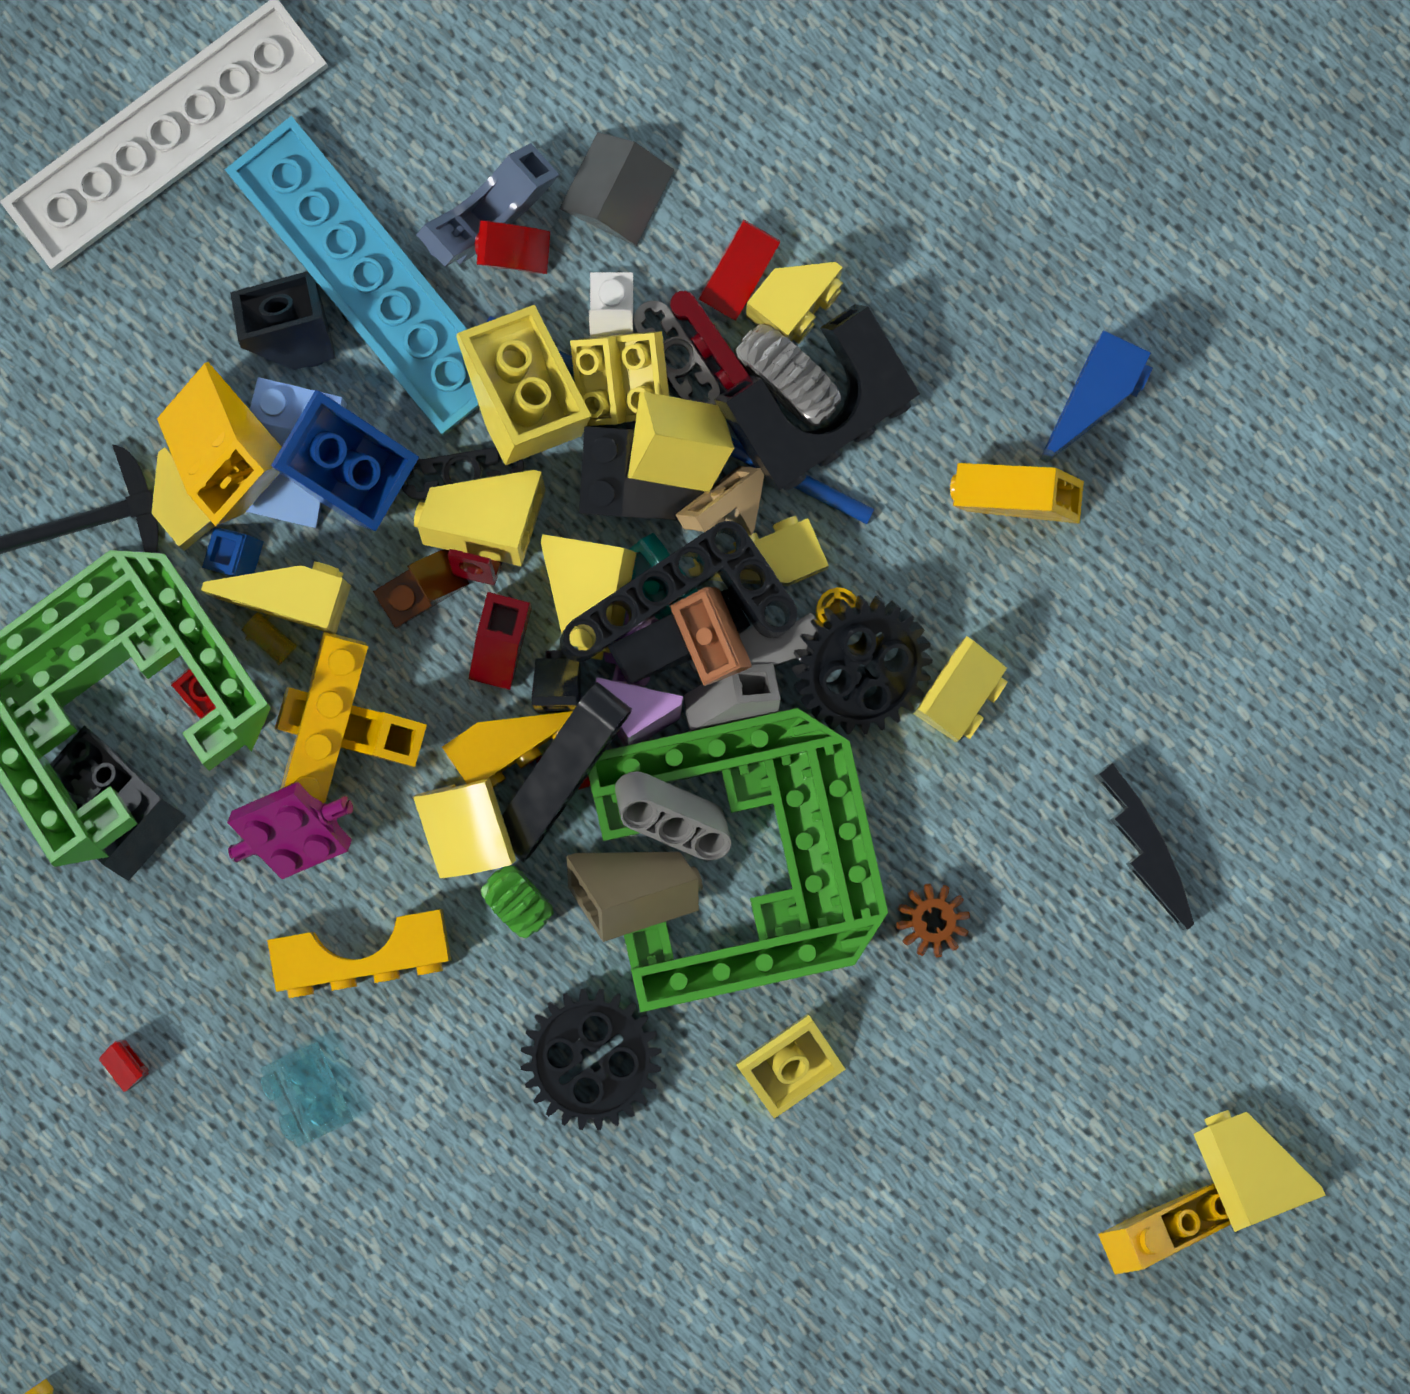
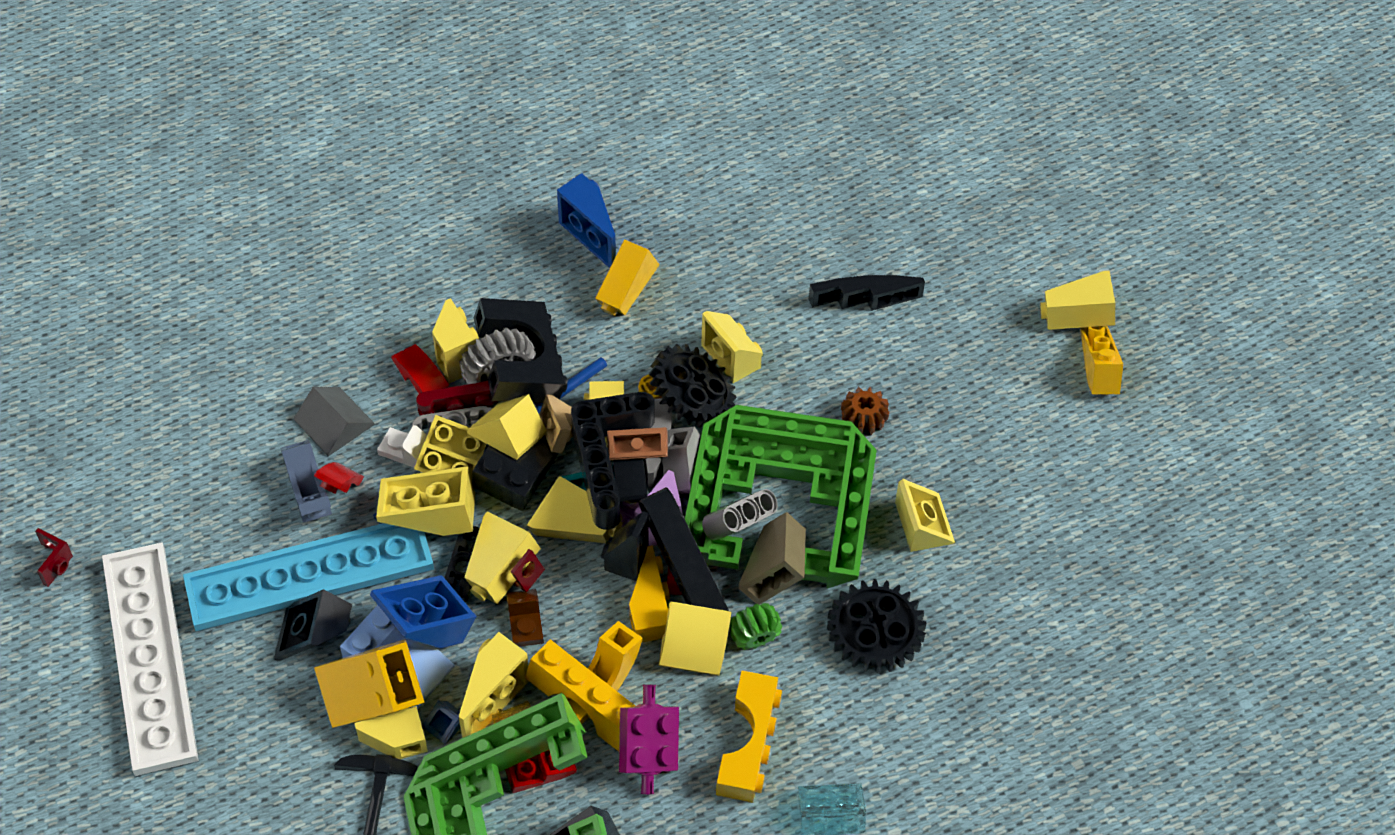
camera: 70 degrees left, 30 degrees down
(499, 640) = (580, 576): dark red slope -> none

